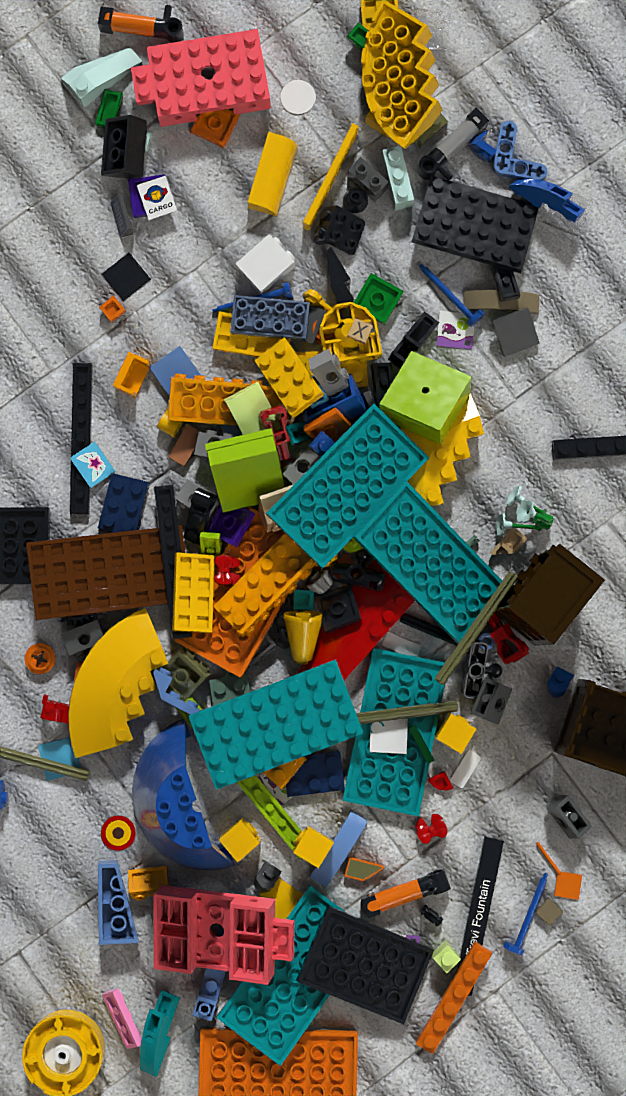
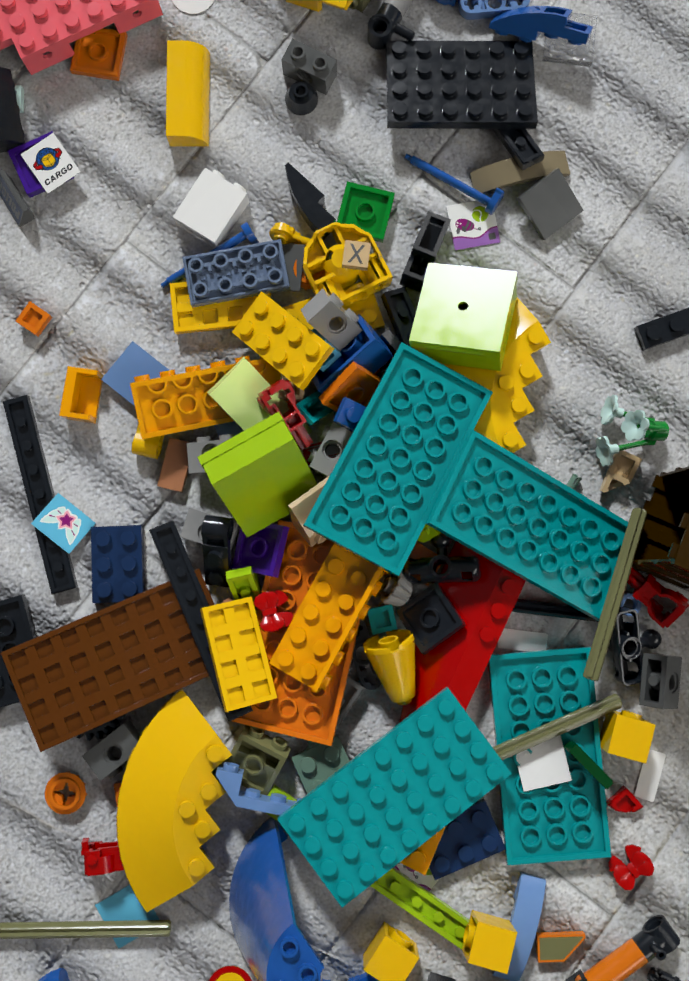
camera: 15 degrees left, 0 degrees up
(126, 276) = (40, 274): black sticker -> none
(330, 177) = (262, 77): yellow tile -> none
(339, 229) = (291, 138): black bracket -> none
(400, 186) = (342, 45): light aqua arch -> none

